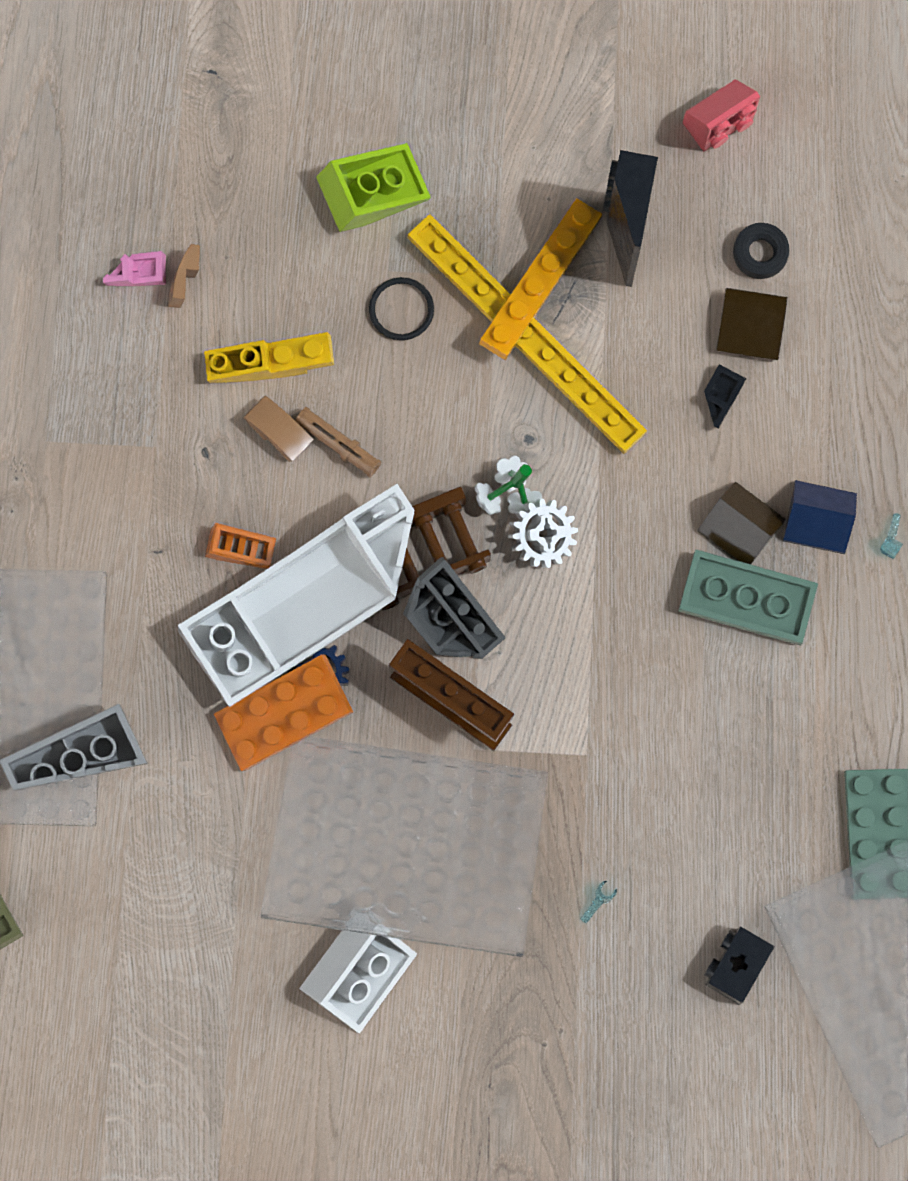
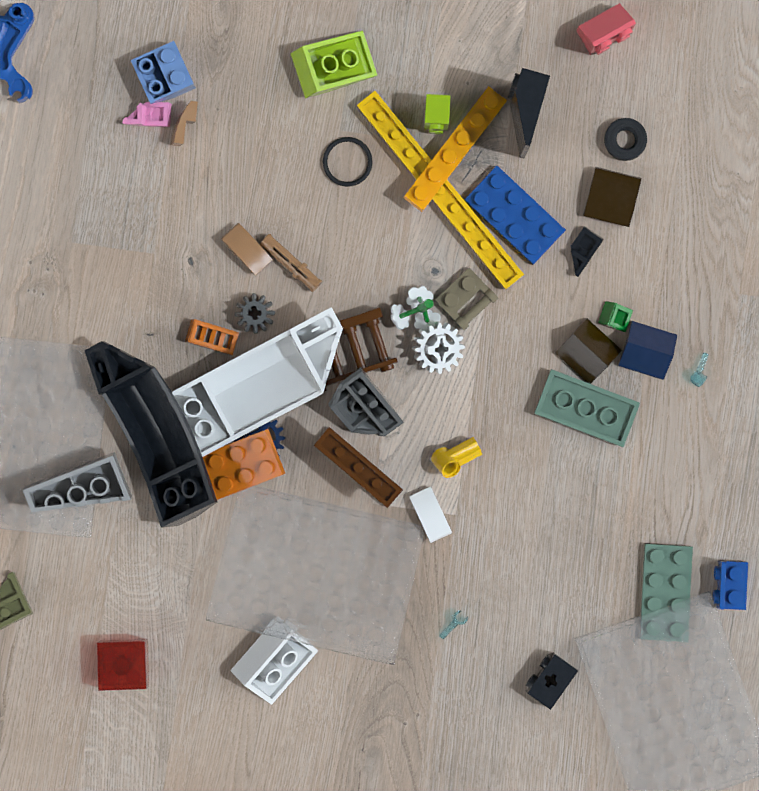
camera: 10 degrees right, 10 degrees up
(151, 993) = (122, 664): none -> clear red brick
(153, 214) = (163, 73): none -> medium blue slope
(175, 673) = (155, 433): none -> black slope
(269, 360) = (243, 194): yellow slope -> none
(305, 503) = (249, 319): none -> dark grey gear
(513, 233) = (437, 113): none -> lime brick
(553, 755) = (430, 514): none -> white slope
(566, 462) = (460, 293): none -> dark tan plate
(573, 680) = (450, 460): none -> yellow piece
(627, 358) = (515, 215): none -> blue plate
(772, 476) = (615, 316): none -> green slope

